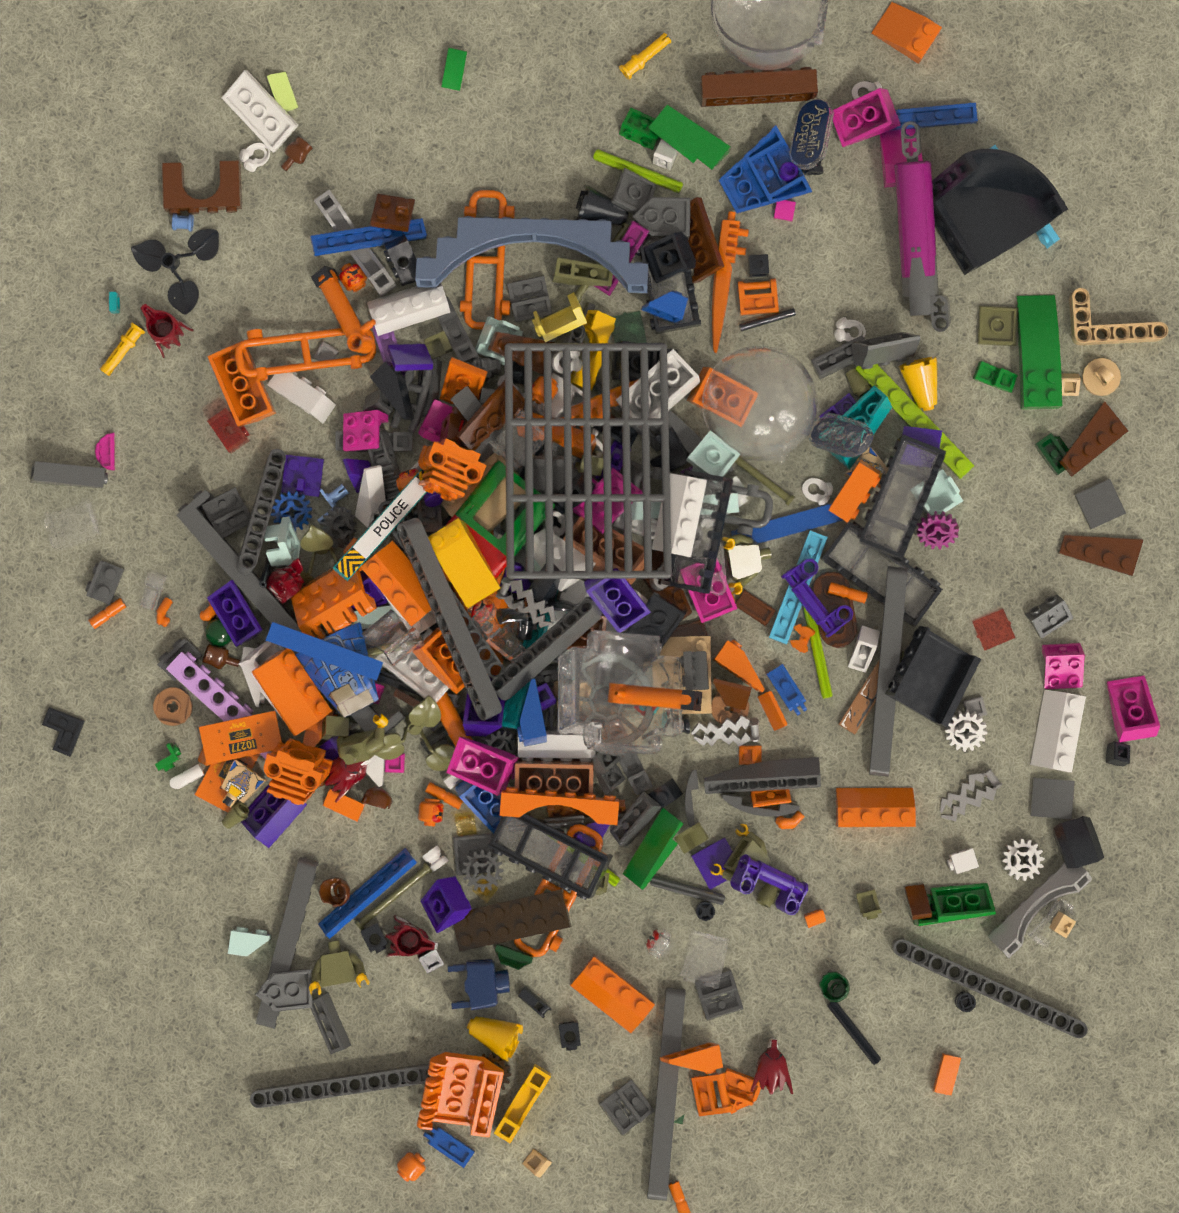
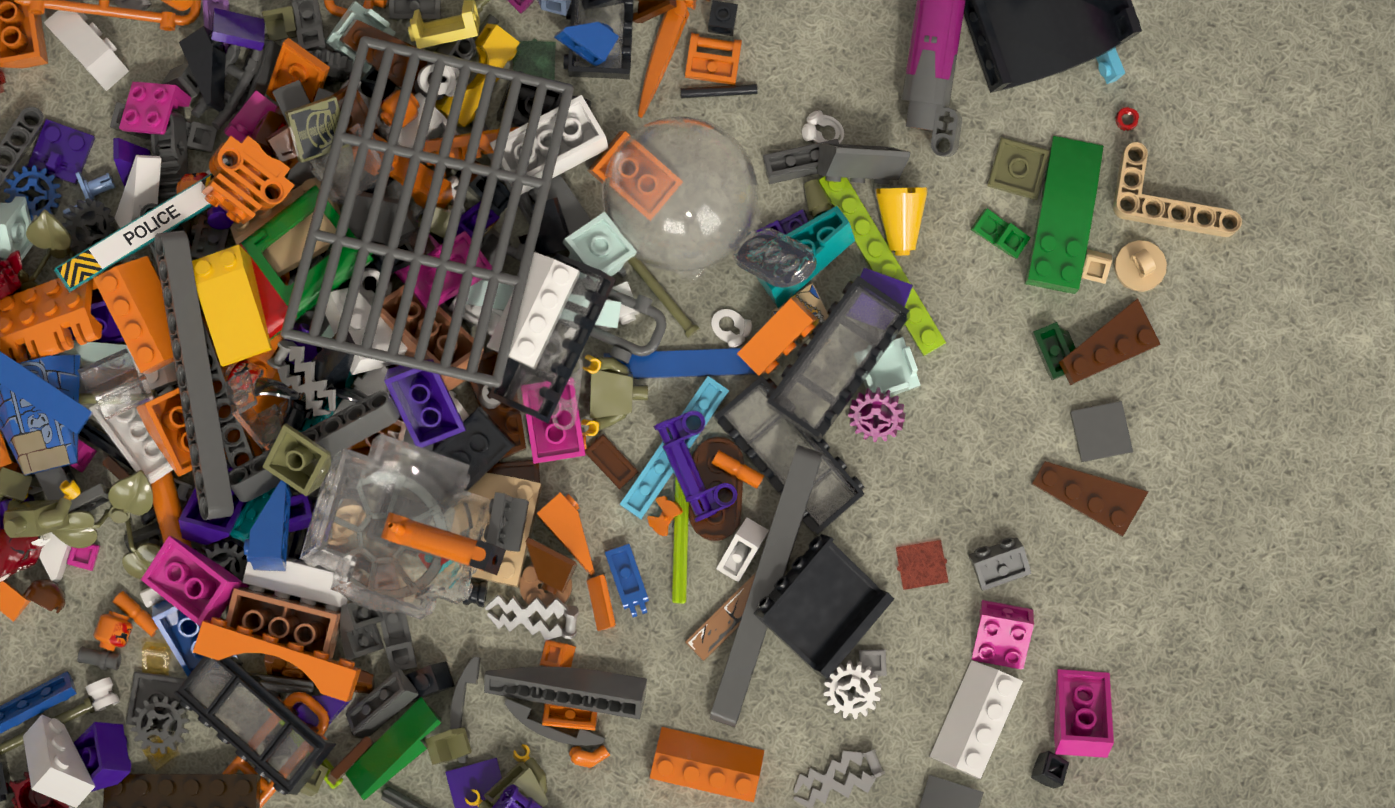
camera: 10 degrees right, 5 degrees down
(416, 914) = (55, 762): none -> white wedge
(426, 833) = (104, 658): none -> dark grey pin
(489, 419) = (314, 127): none -> tile
(540, 663) = (298, 460): none -> olive slope
(623, 863) = (340, 769): none -> reddish brown tile
(1062, 274) = (1126, 110): none -> red axle

